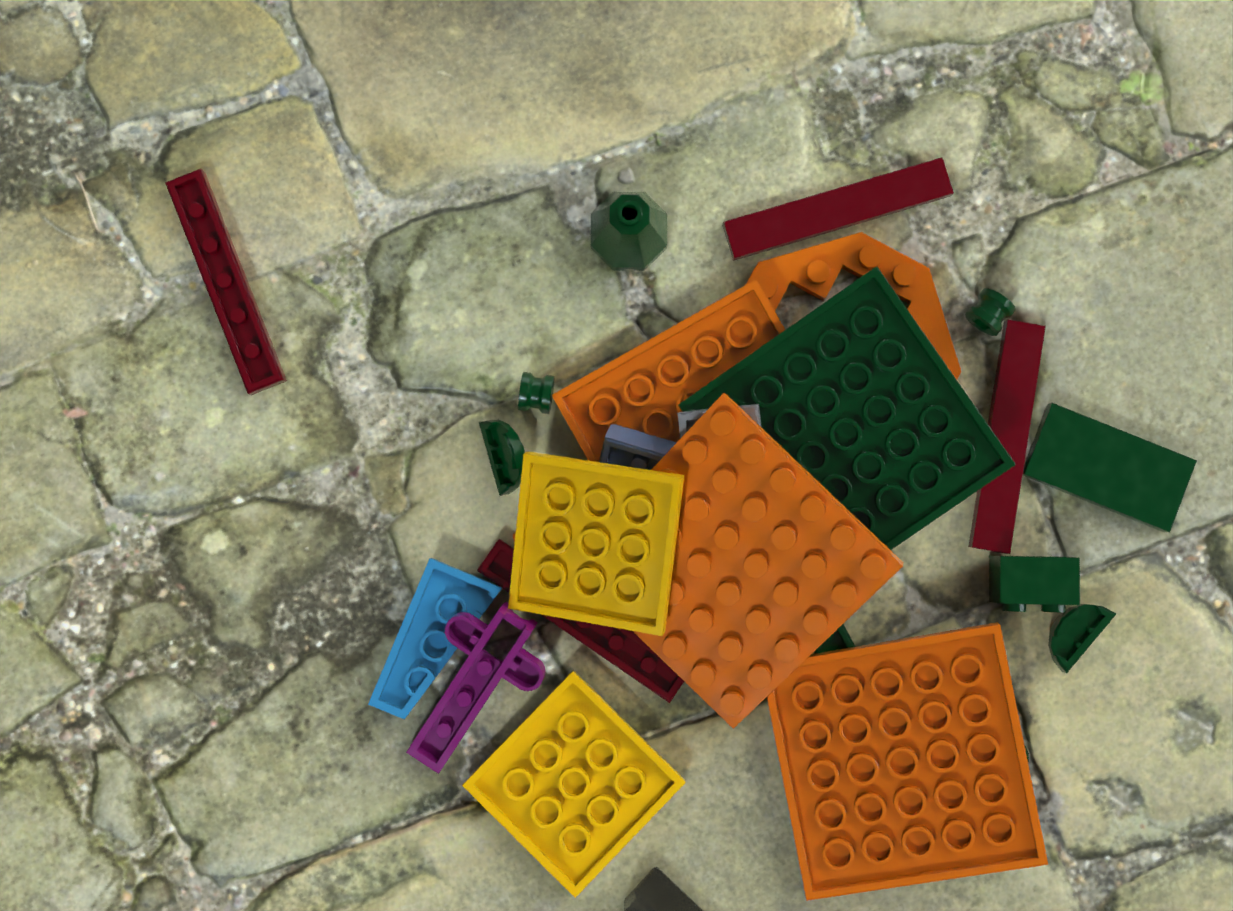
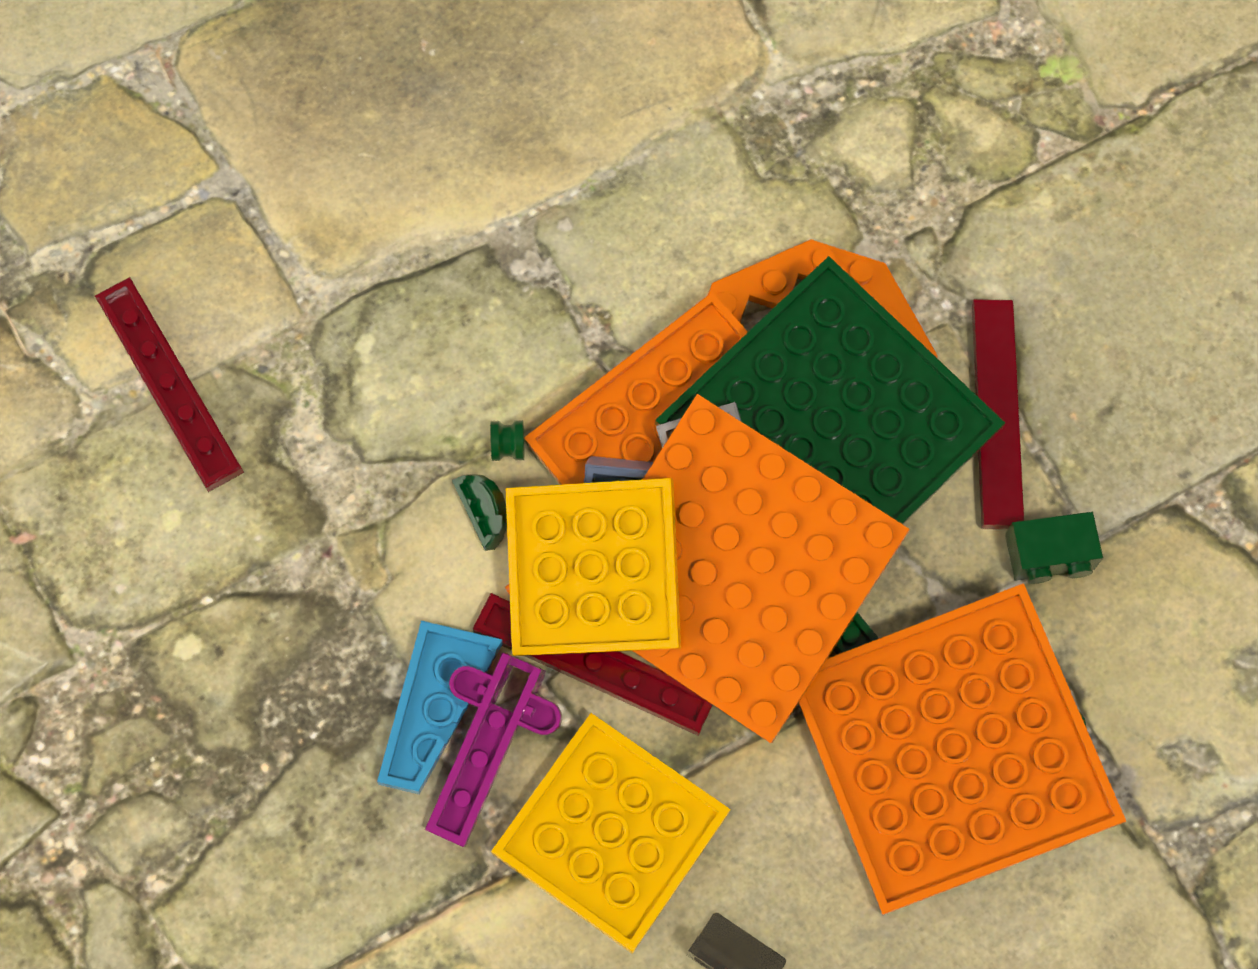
camera: 10 degrees left, 15 degrees down
(628, 231) = (576, 271): dark green cone -> none
(837, 208) = (782, 222): dark red tile -> none
(990, 311) = (954, 294): dark green wheel -> none
(1075, 632) = (1108, 592): dark green plate -> none
(1109, 467) = (1107, 427): dark green tile -> none

